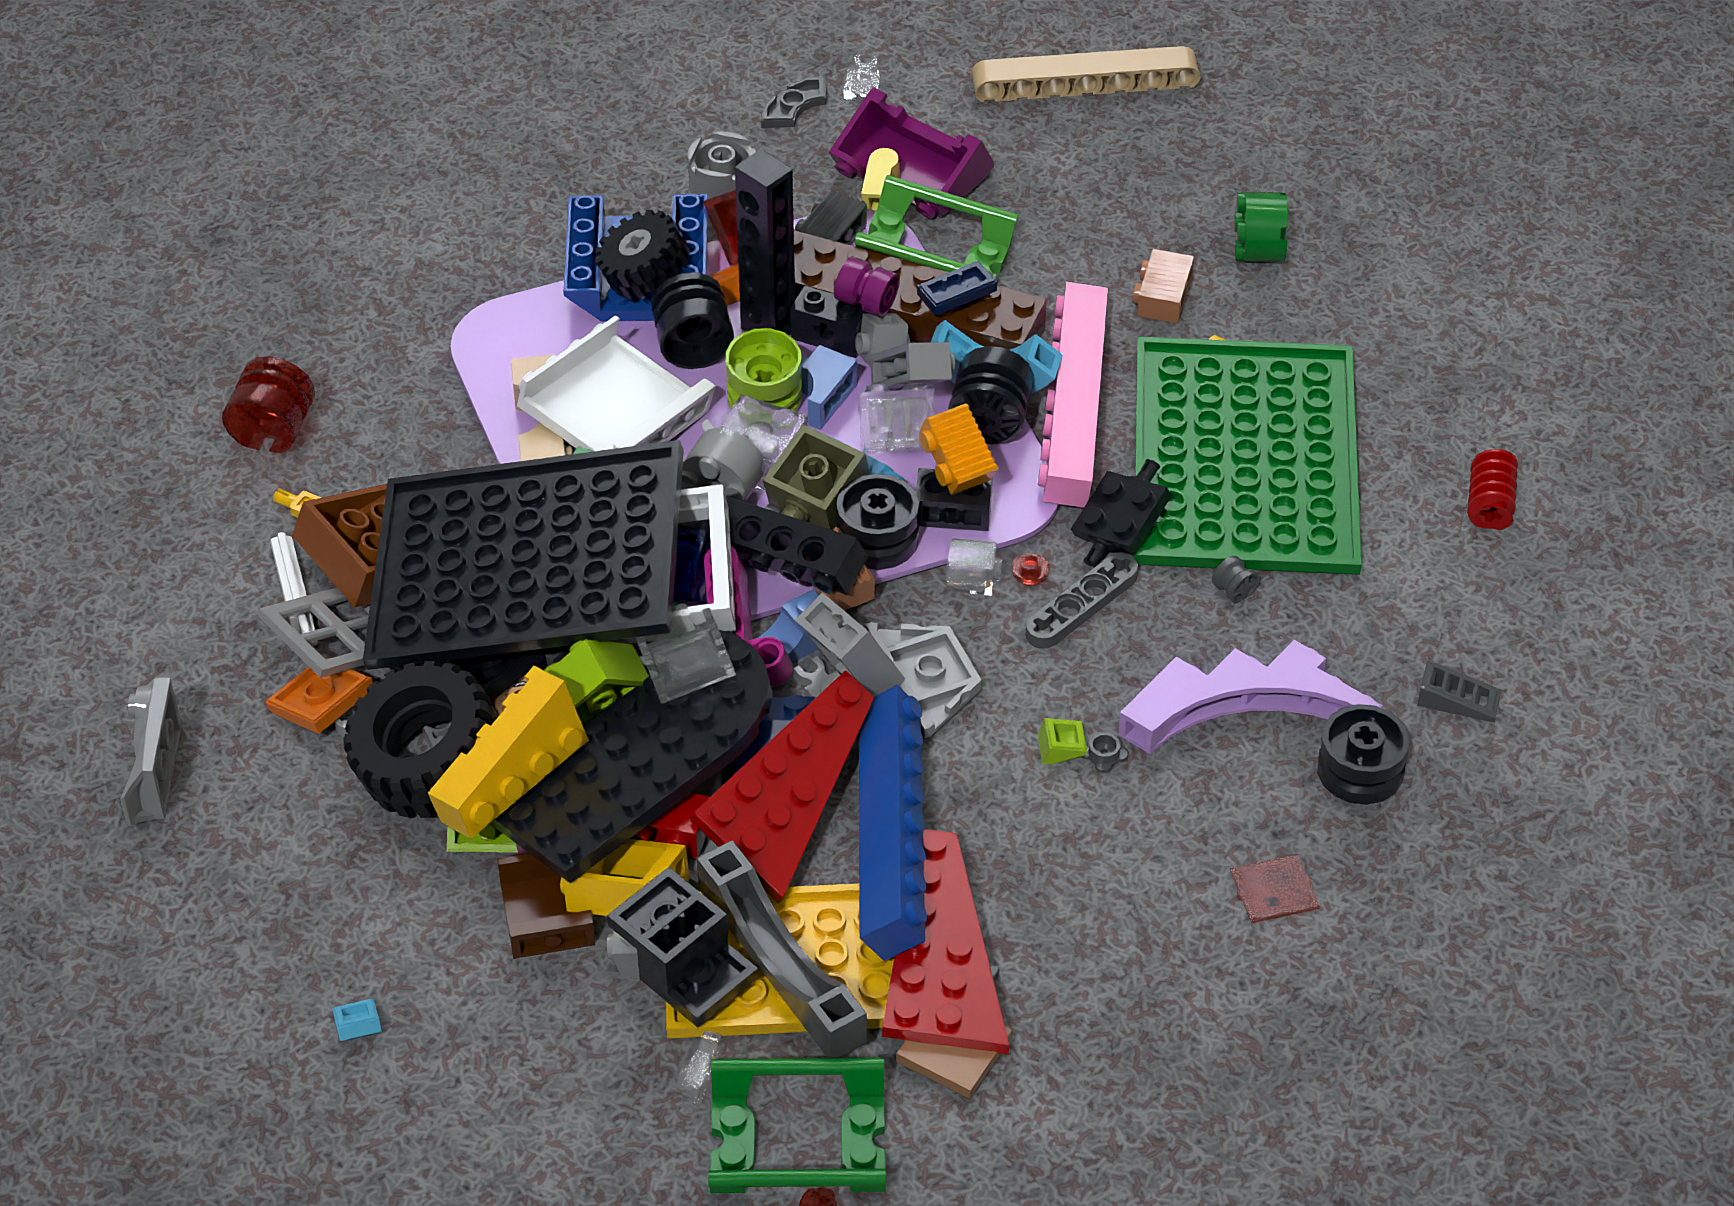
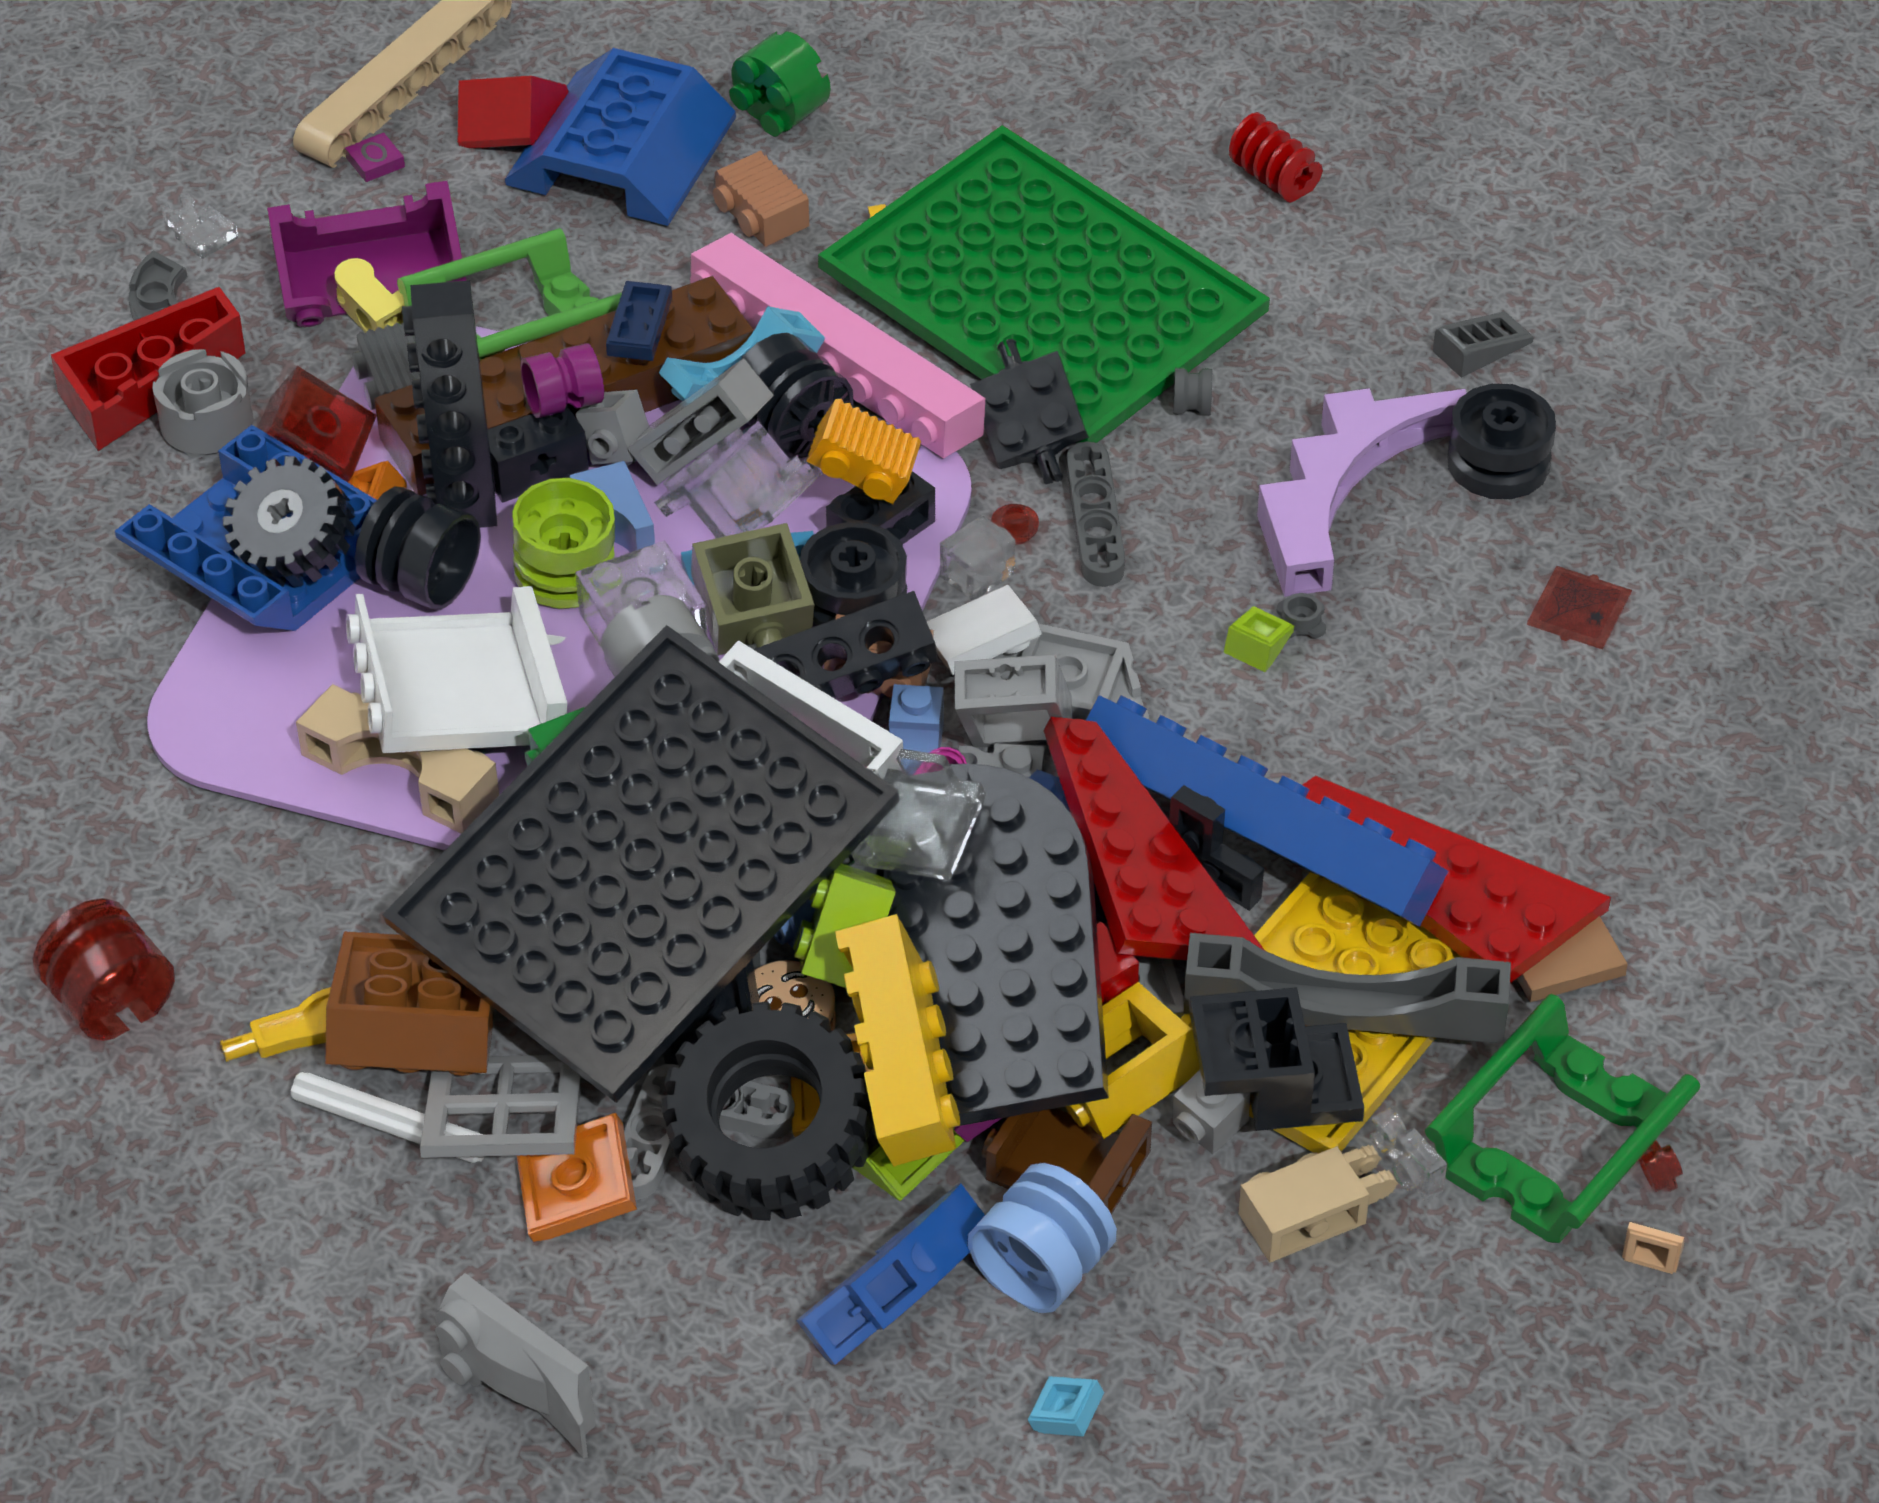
camera: 50 degrees left, 0 degrees up
(378, 878) = (894, 1277): none -> blue slope
(454, 925) = (1042, 1237): none -> light blue wheel
(619, 1042) = (1312, 1199): none -> tan hinge
(699, 114) = (112, 374): none -> red wedge
(845, 819) = (1202, 827): none -> black plate
(910, 604) = (984, 628): none -> white tile
(1006, 111) = (374, 157): none -> magenta tile
(1100, 134) = (506, 110): none -> red slope
(1146, 199) = (632, 128): none -> blue slope

